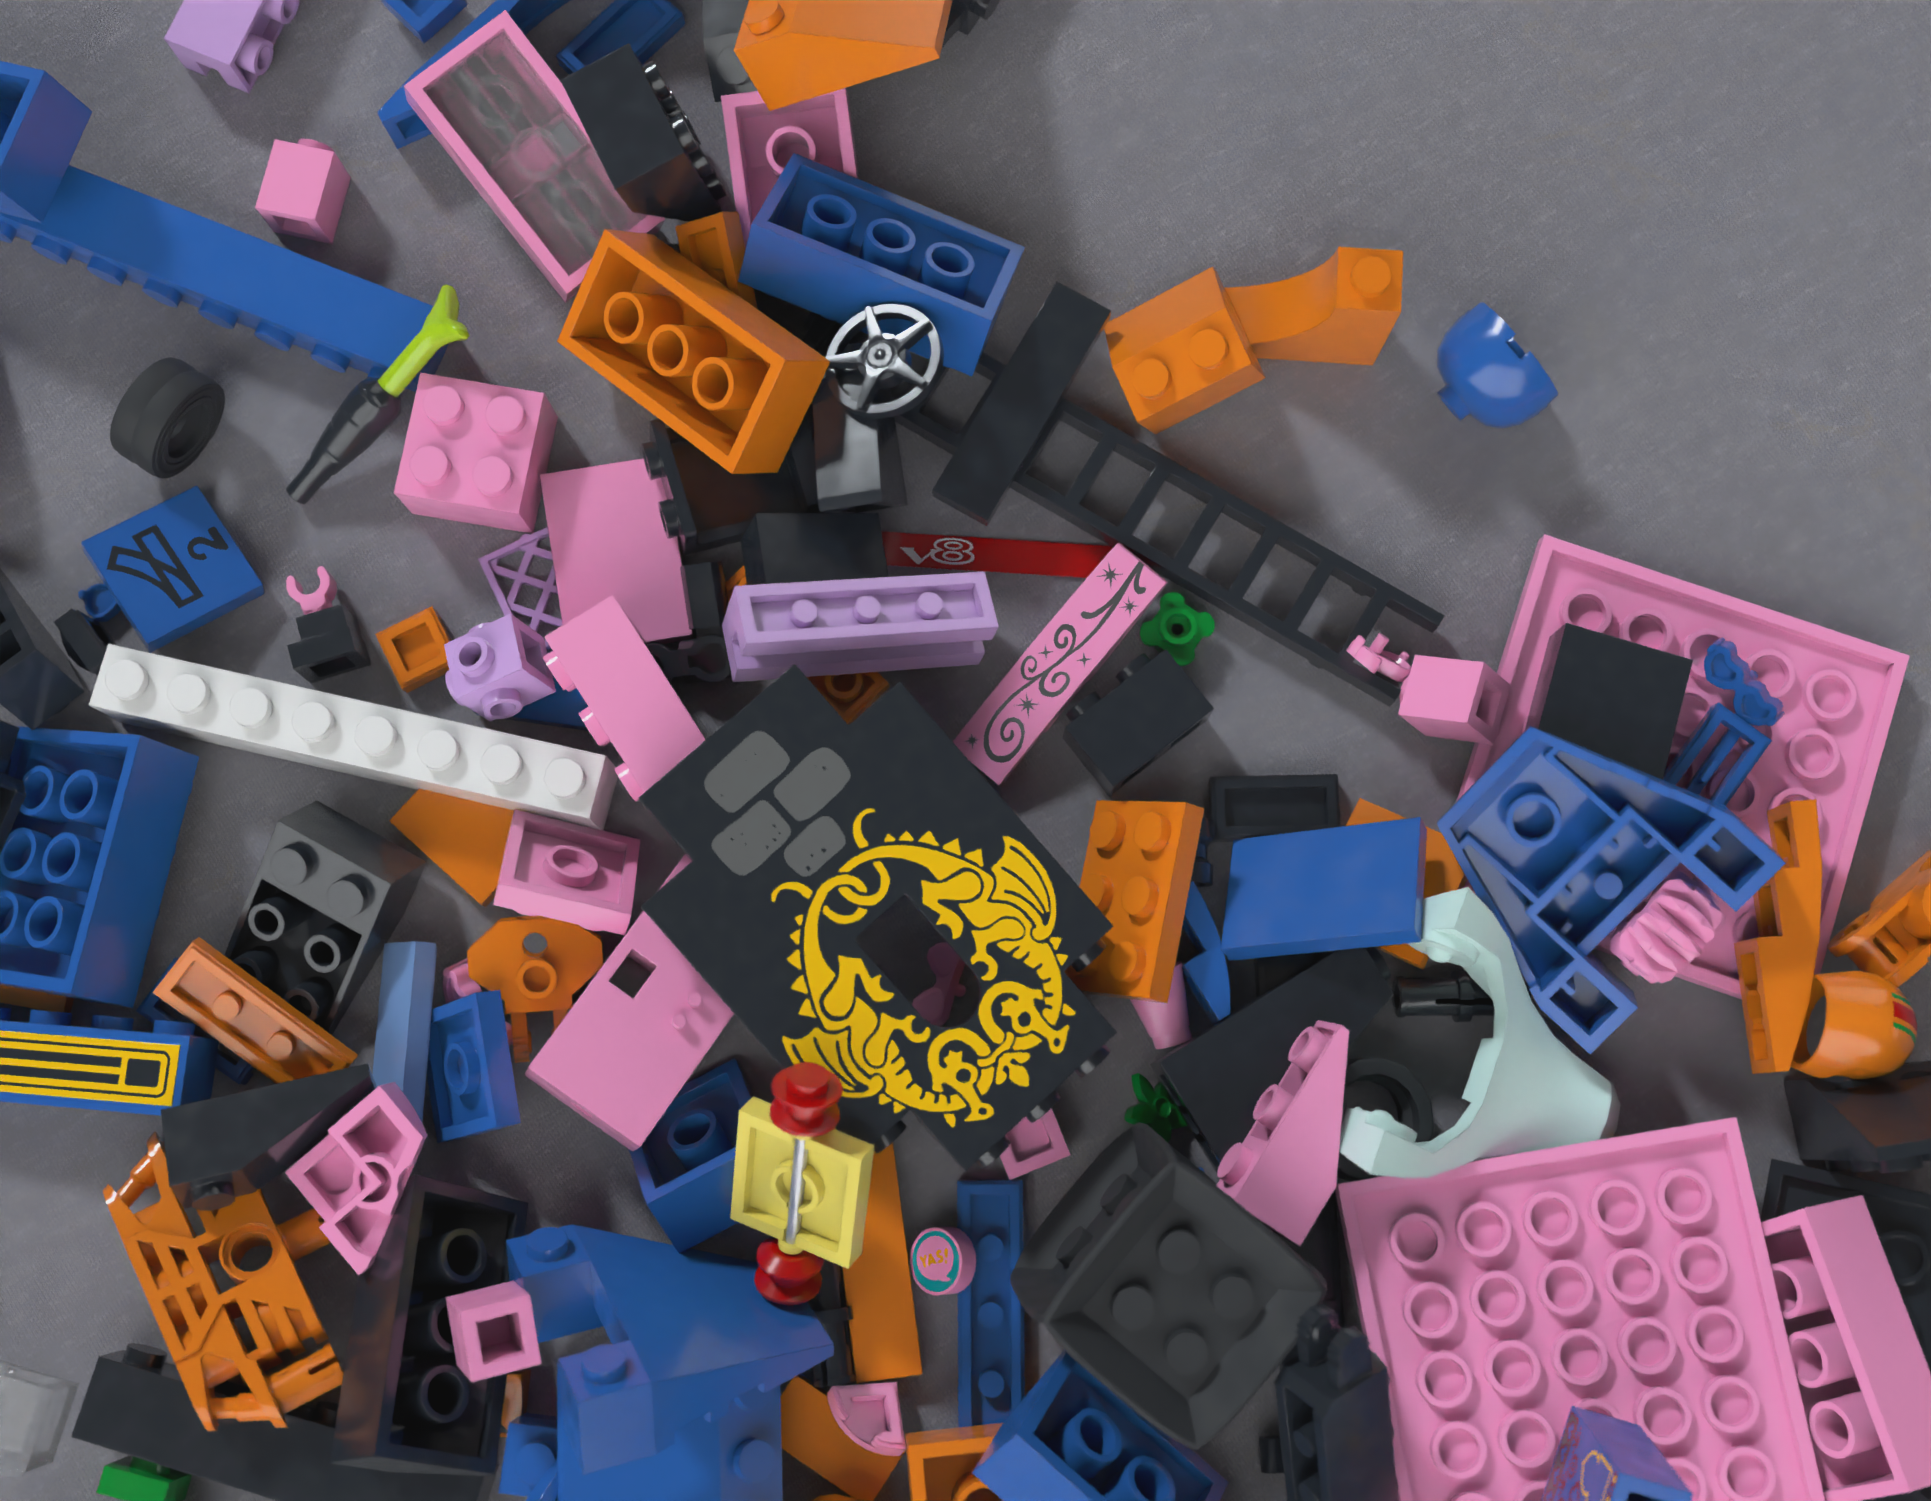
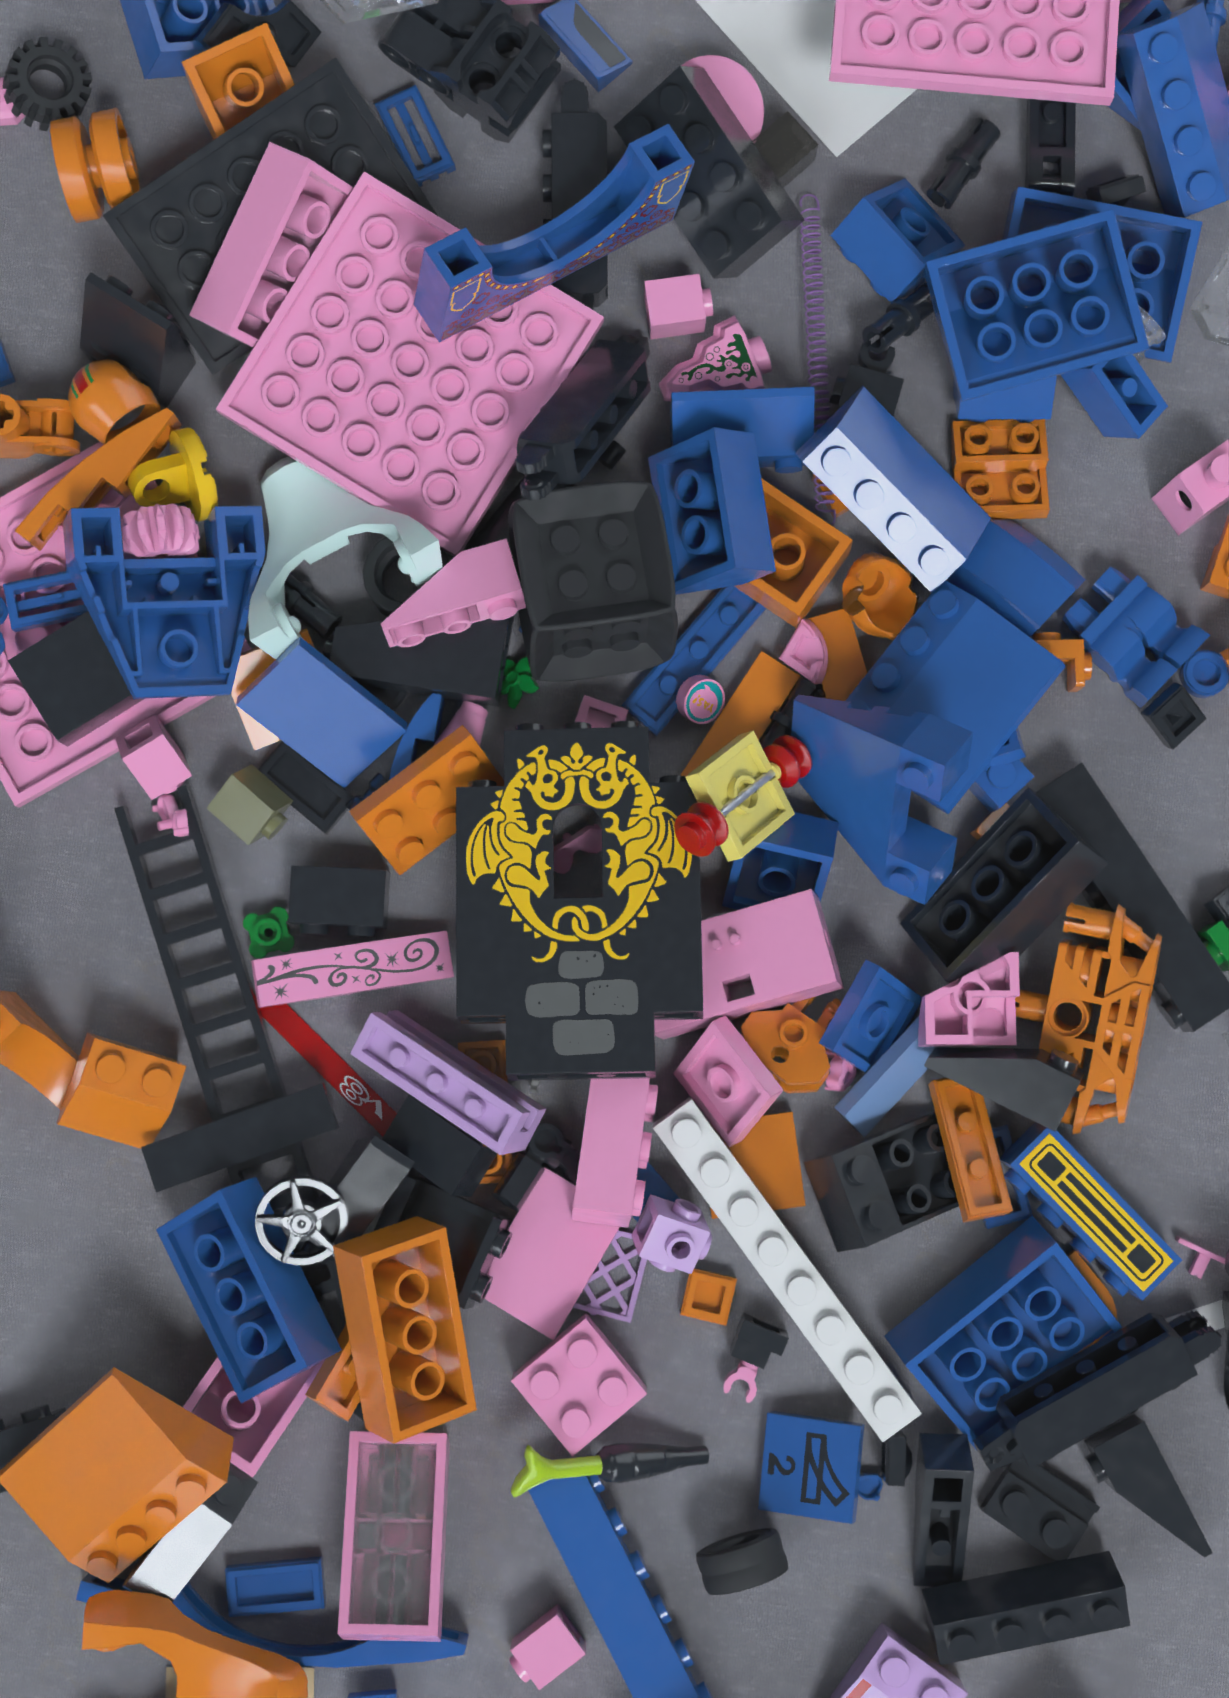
camera: 140 degrees left, 5 degrees up
(493, 1330) = (967, 857): bright pink brick -> none
(644, 138) = (325, 1483): black slope -> none
(1311, 737) = (251, 805): none -> olive brick
(1700, 1013) = (181, 477): none -> yellow tile

